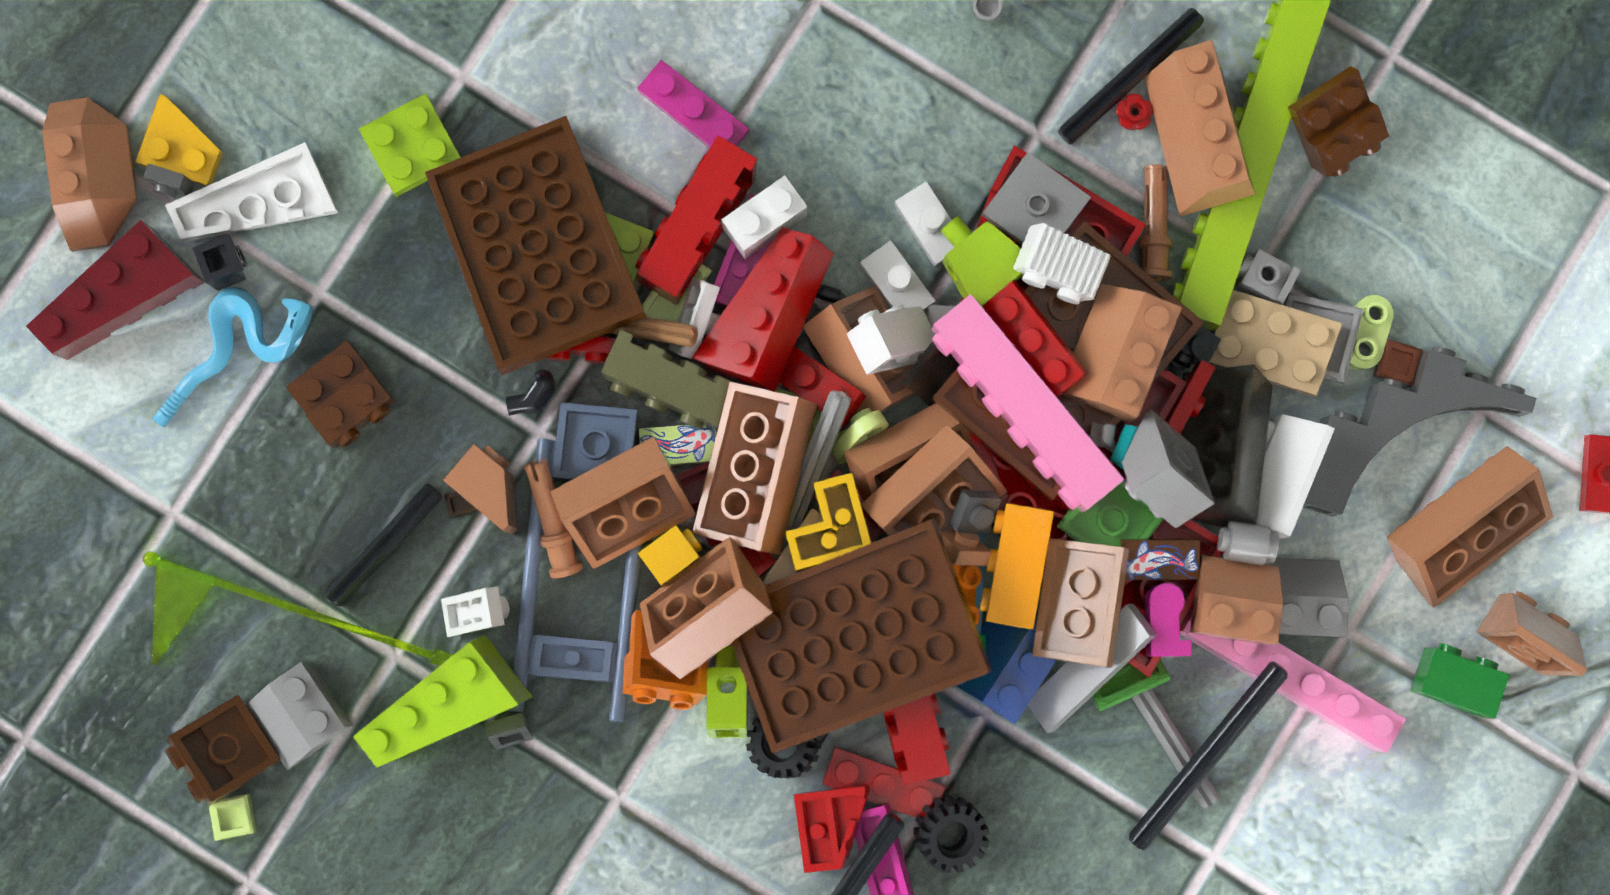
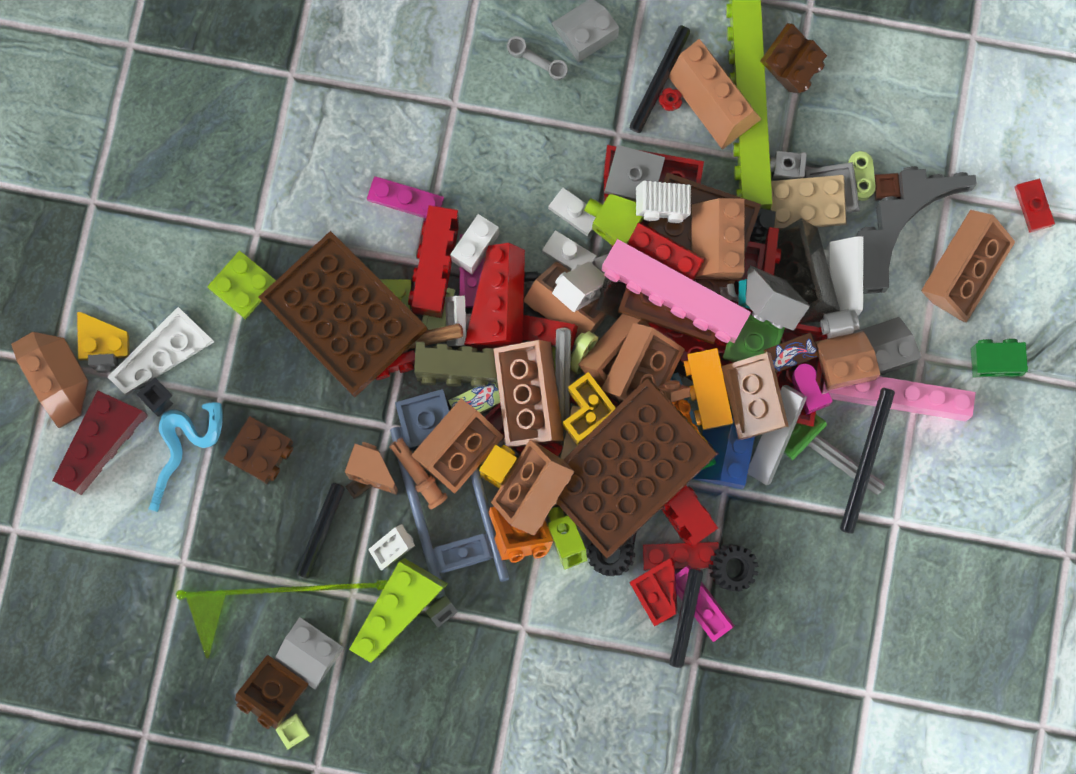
camera: 15 degrees left, 5 degrees down
(536, 396) = (378, 405): black arm -> none
(975, 511) = (670, 367): dark grey plate -> none
(1156, 242) = (713, 170): nougat pin -> none
(1533, 637) = (1029, 315): nougat slope -> none

